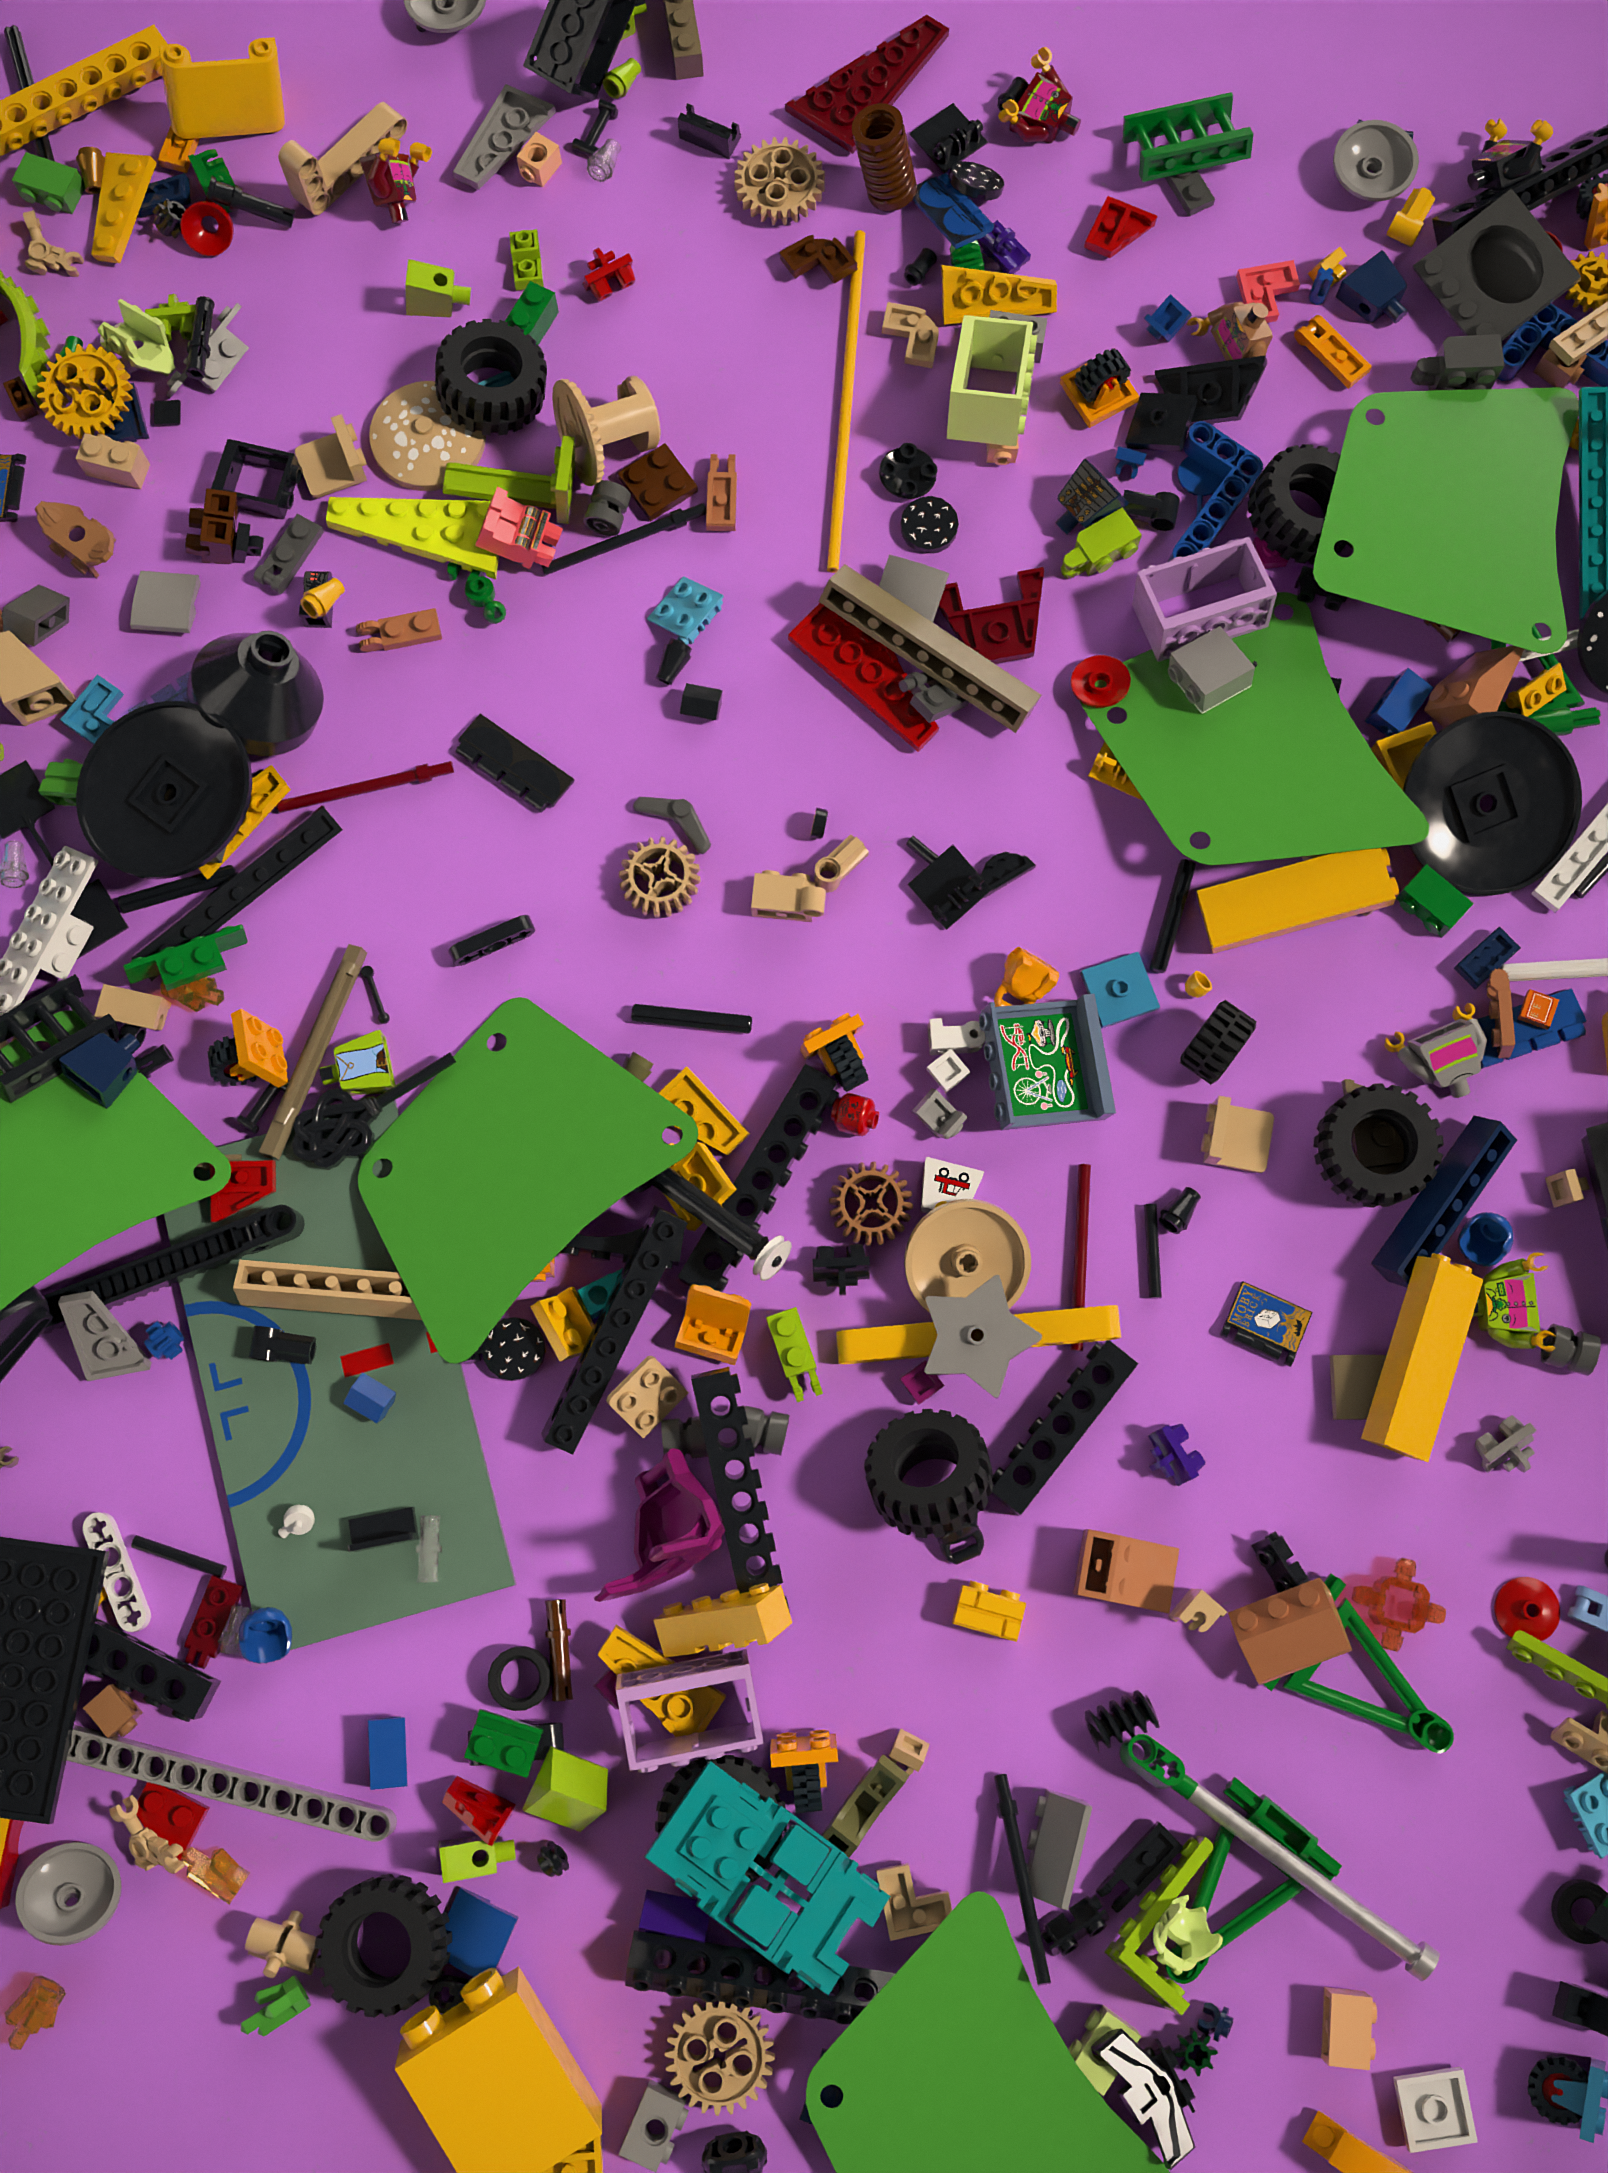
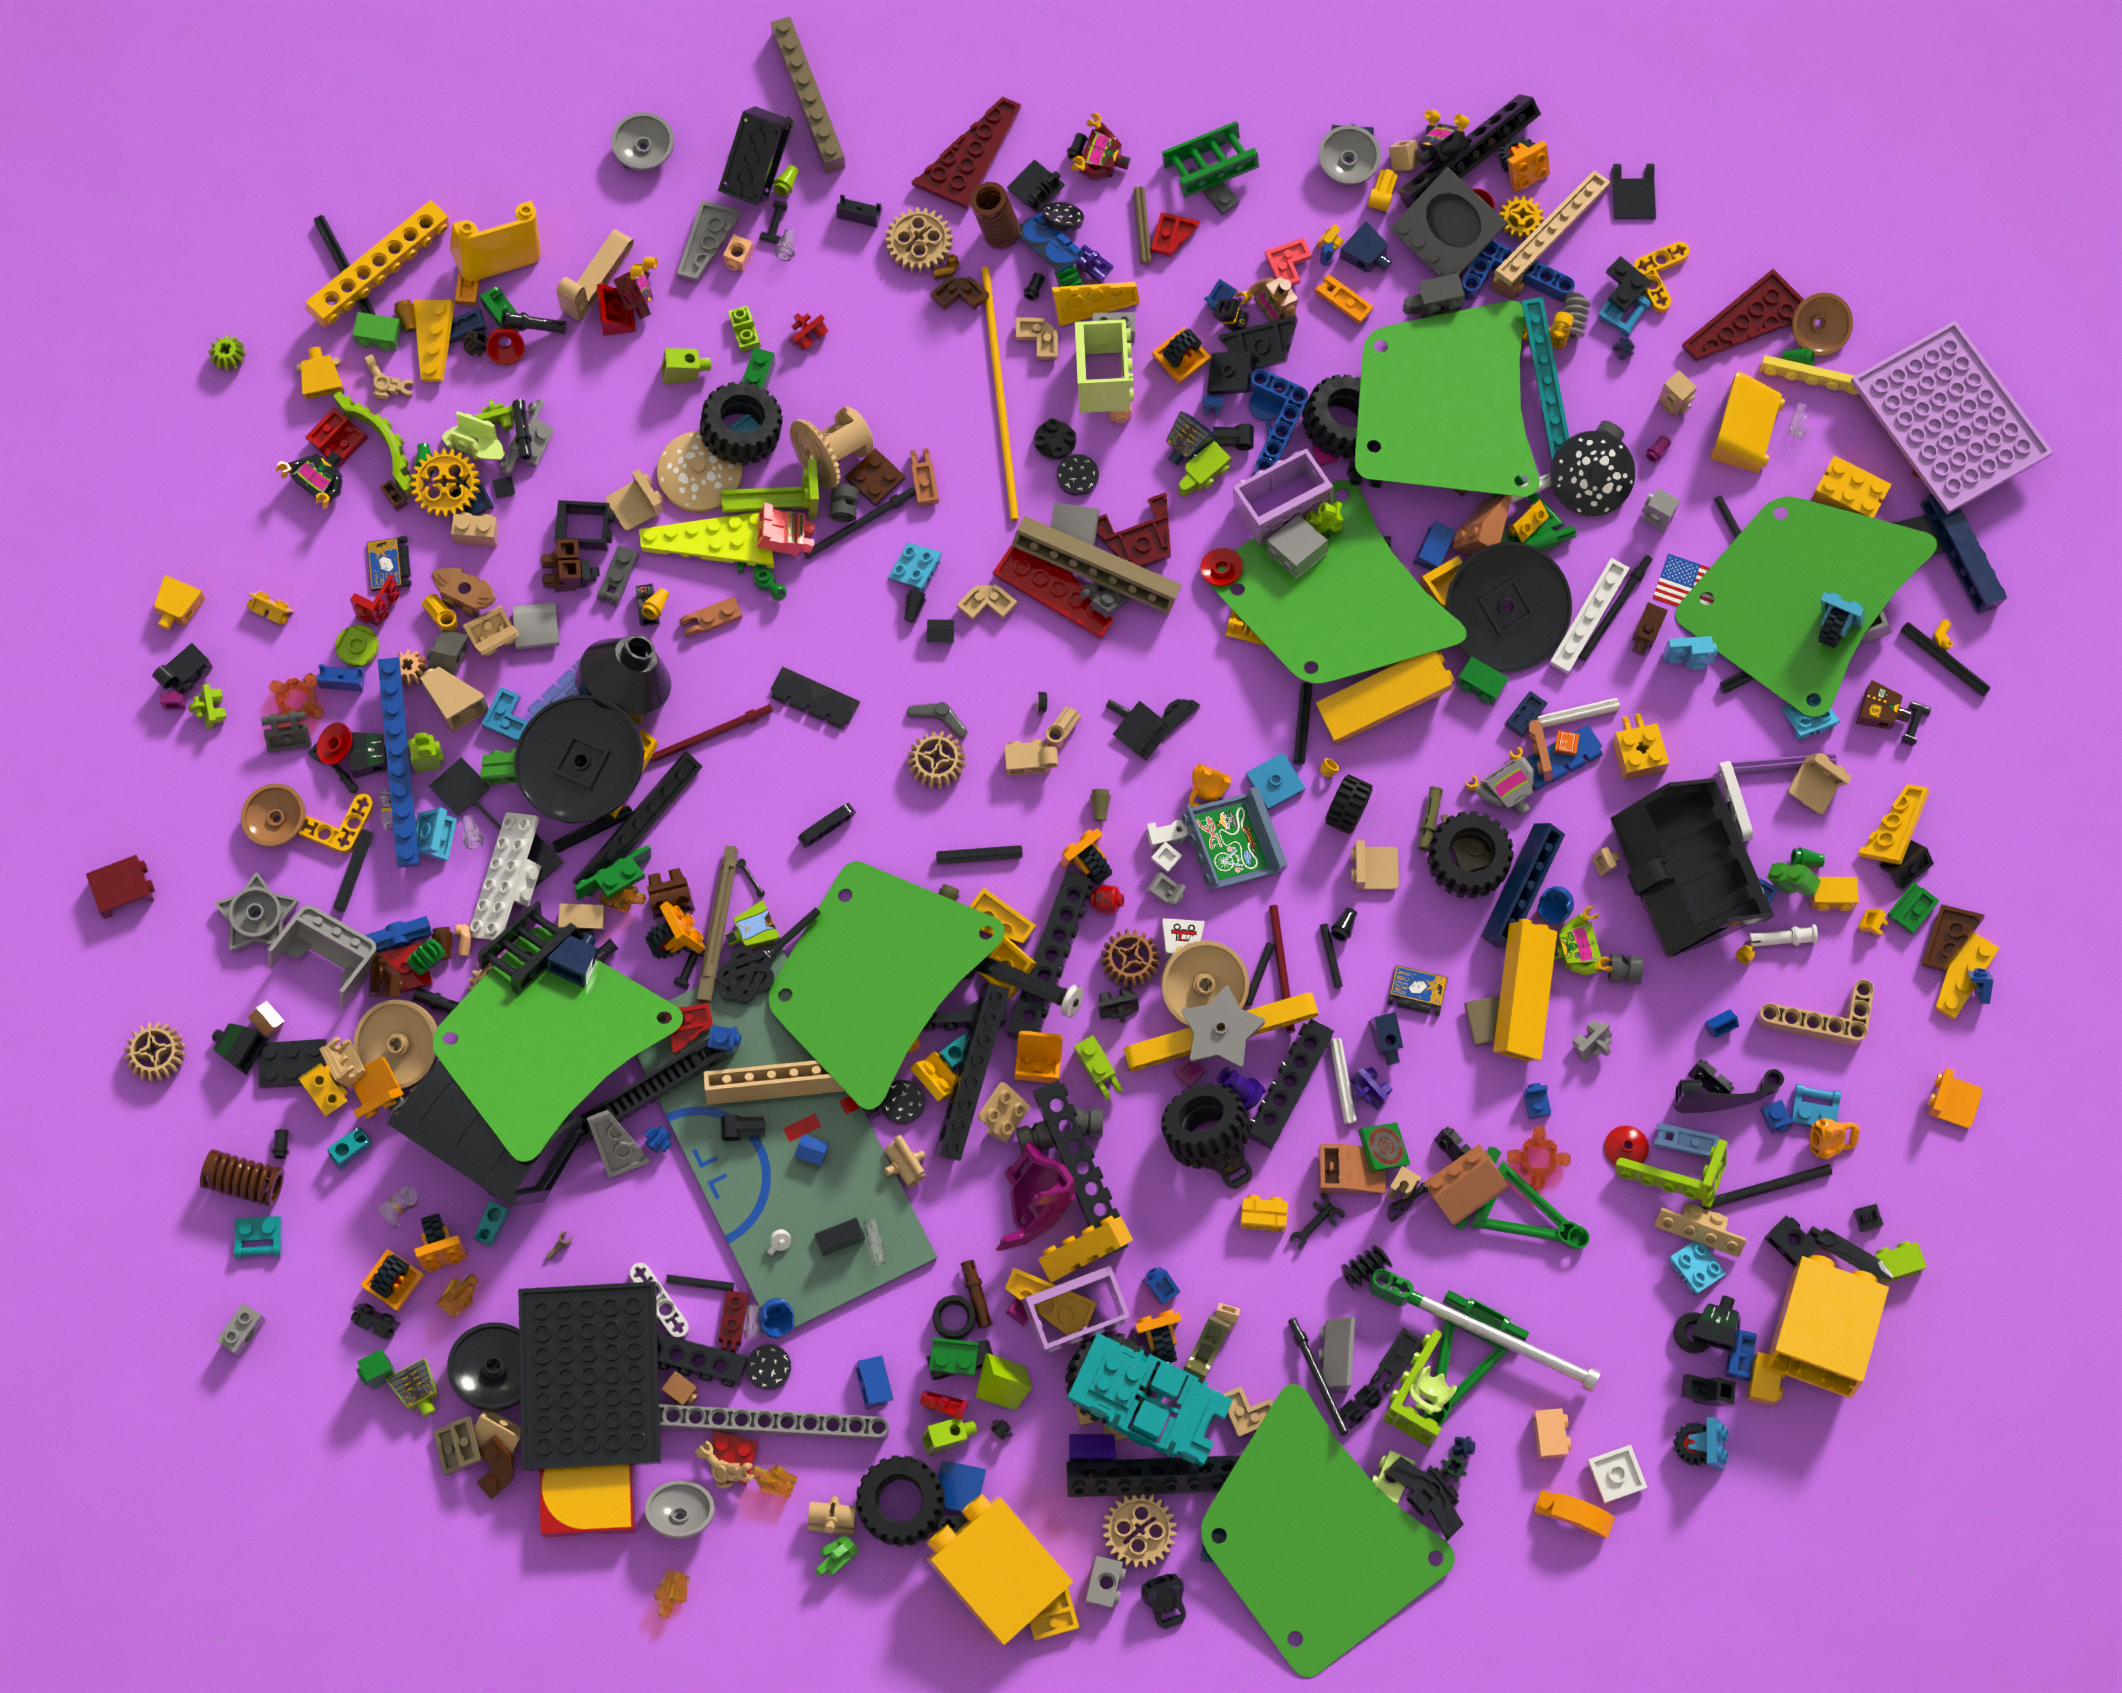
camera: 15 degrees left, 5 degrees down
(42, 563) = (440, 613): none -> yellow piece
(100, 596) = (491, 631): none -> tan bracket
(246, 1699) = (768, 1367): none -> black tile
(257, 997) = (673, 891): none -> reddish brown hips
(278, 1218) = (724, 1038): none -> blue bracket
(355, 209) = (613, 313): none -> red slope
(497, 1438) = (904, 1162): none -> tan pin
(774, 666) = (986, 596): none -> tan plate
(812, 225) = (949, 269): none -> pearl gold arm
(822, 1687) = (1161, 1284): none -> blue bracket
(871, 977) = (1100, 803): none -> olive cone
(997, 1427) = (1249, 1089): none -> dark purple piece
(1048, 1256) = (1259, 972): none -> black bar
(1079, 211) = (1142, 225): none -> dark tan axle
(1081, 1622) = (1326, 1210): none -> black bar
(1137, 1436) = (1343, 1081): none -> white axle
(1177, 347) = (1233, 317): none -> black leg
(1178, 1547) = (1383, 1147): none -> tile
(1188, 1639) = (1399, 1207): none -> black piece
(1211, 1372) = (1387, 1027): none -> dark blue torso
(1260, 638) = (1326, 518): none -> lime hips
(1322, 1093) = (1431, 813): none -> olive pin
(1409, 1518) = (1537, 1101): none -> blue bracket
(1448, 175) = (1404, 155): none -> tan panel

